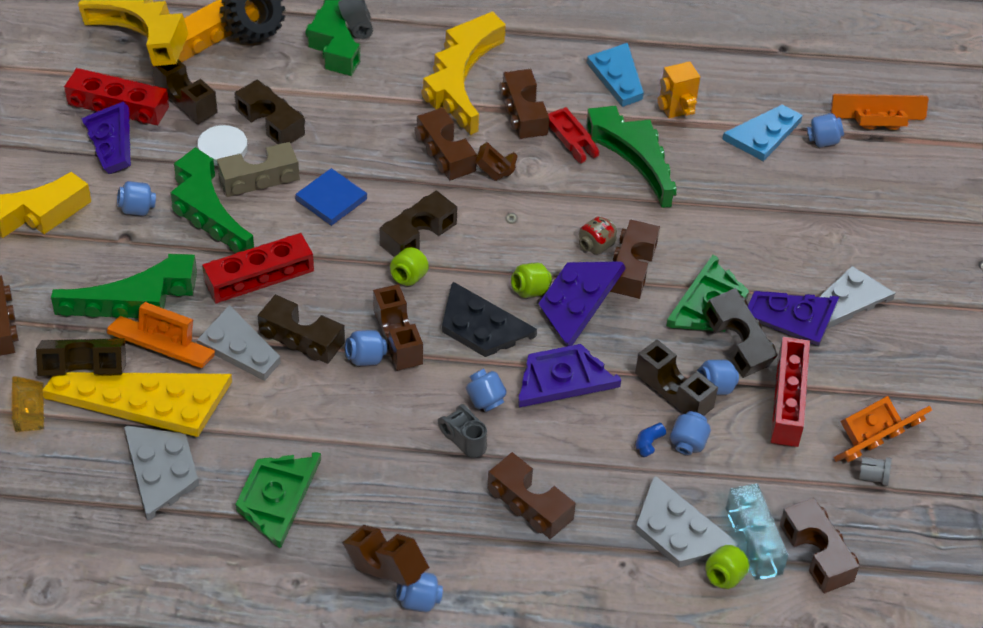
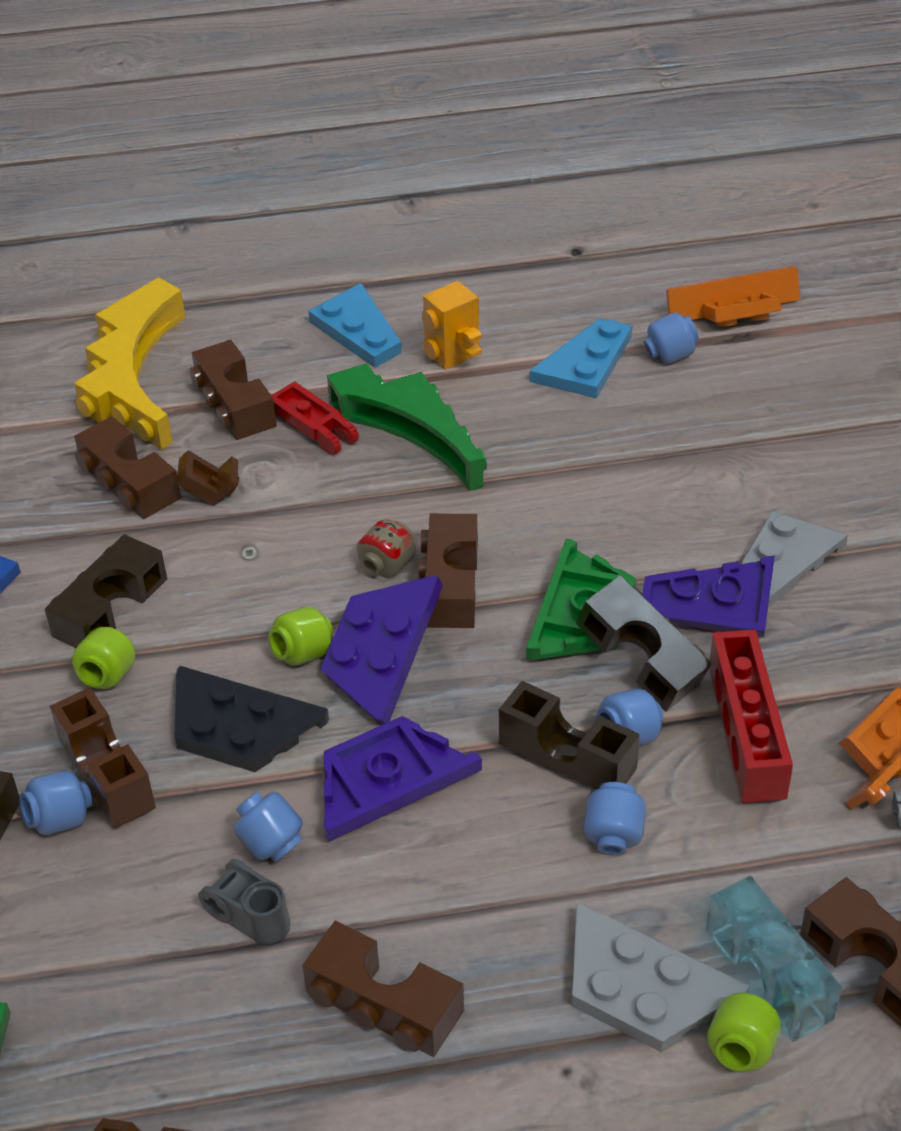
camera: 10 degrees left, 5 degrees down
(646, 438) = (546, 843): blue arm -> none

